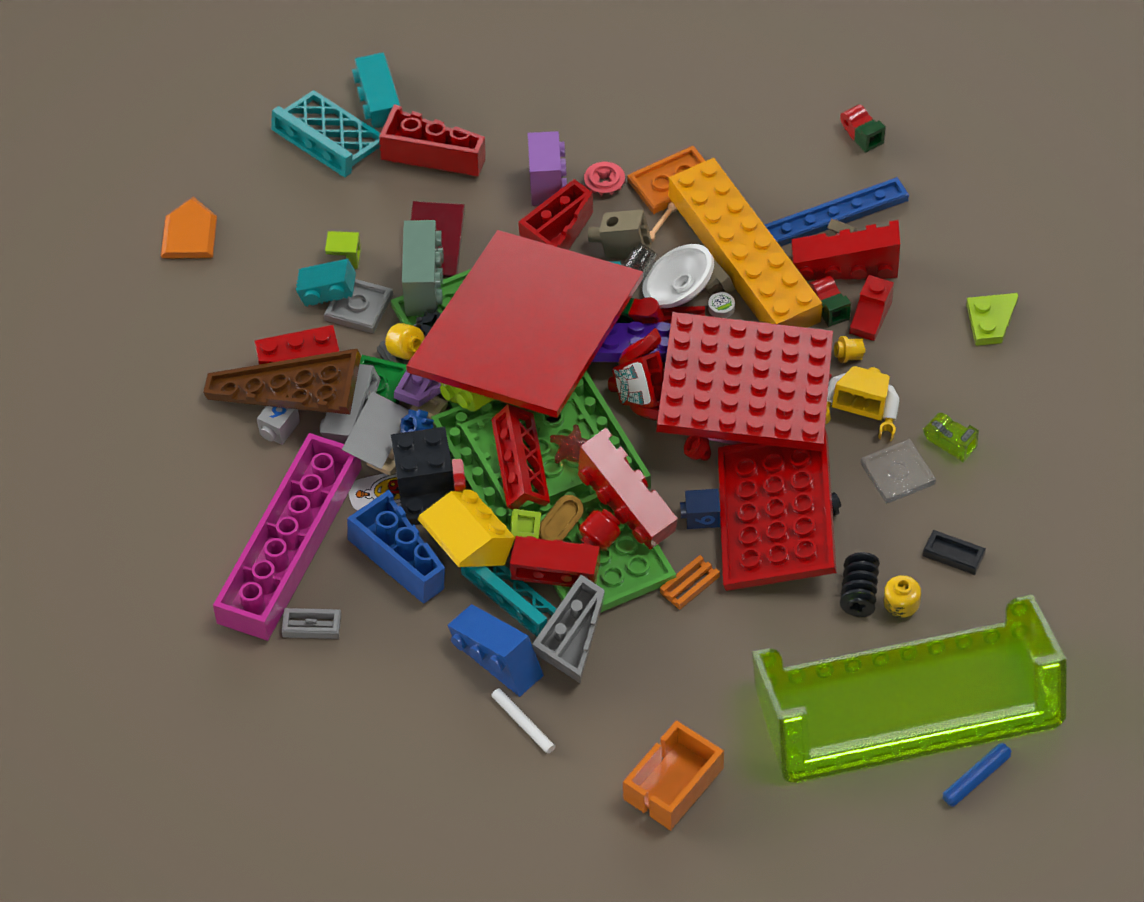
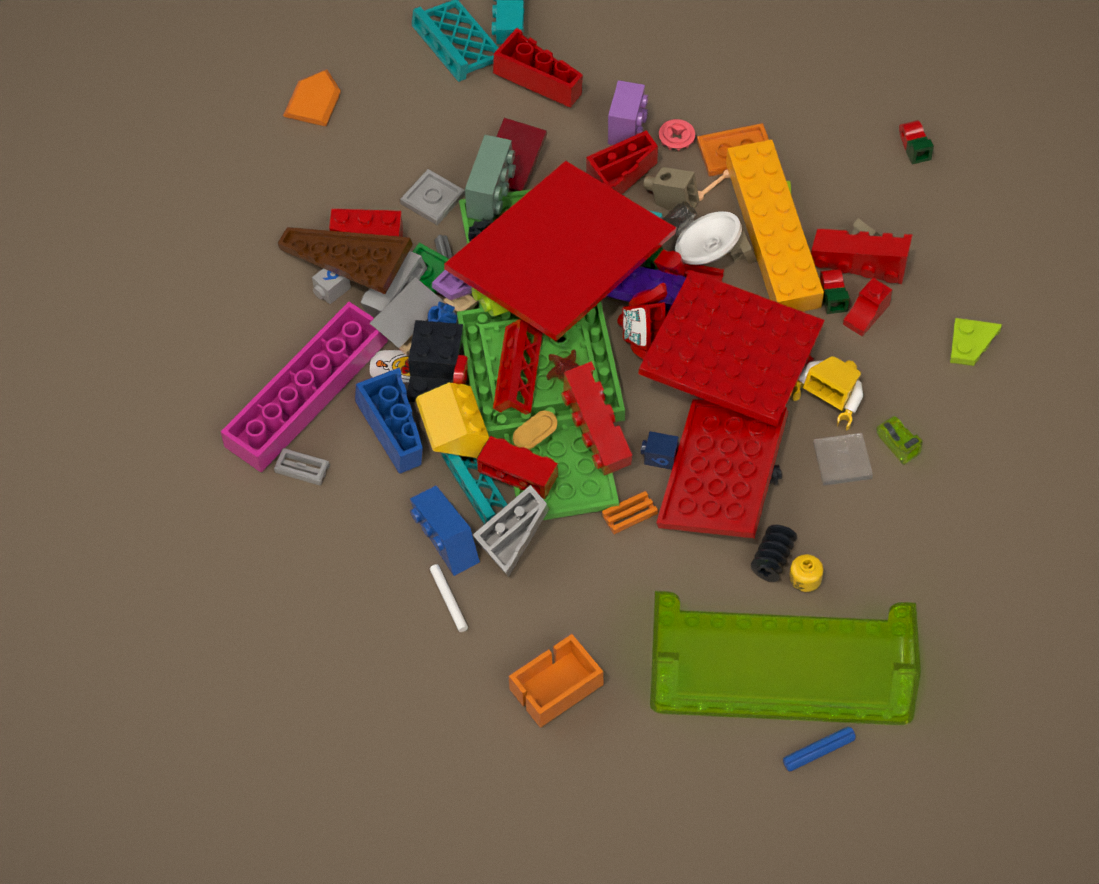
camera: 15 degrees right, 5 degrees up
(326, 282) = (409, 171): teal brick -> none
(344, 244) = (436, 141): lime panel -> none
(403, 340) = (455, 237): yellow head -> none
(525, 523) = (502, 427): lime plate -> none
(600, 529) = (564, 448): red head -> none
(697, 448) = (675, 397): red tile -> none
(721, 305) = (739, 272): tile -> none
(842, 209) = (869, 212): blue tile -> none
(849, 349) = (836, 339): yellow hose -> none
(954, 552) = (867, 544): black tile -> none

